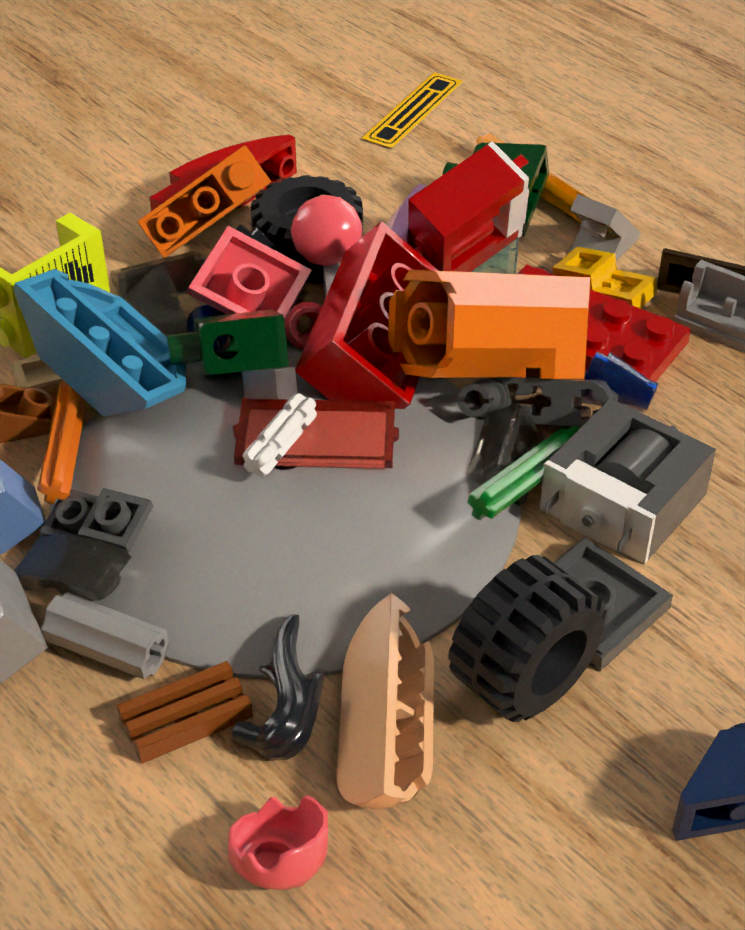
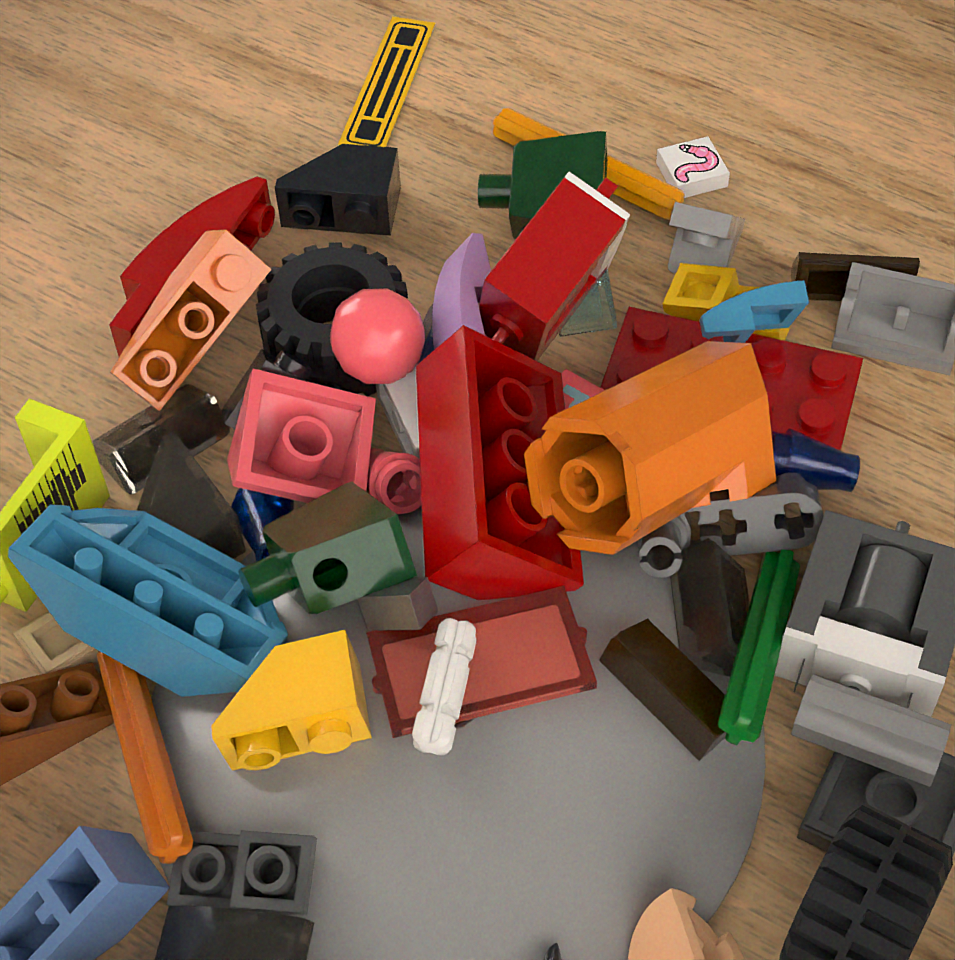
camera: 15 degrees left, 10 degrees up
(172, 424) = (296, 703): none -> yellow slope
(351, 155) = (342, 191): none -> black slope
(444, 478) = (667, 685): none -> dark brown slope
(588, 540) = (871, 730): none -> light grey axle
(612, 273) = (753, 310): none -> dark azure slope
(615, 192) = (693, 166): none -> white tile

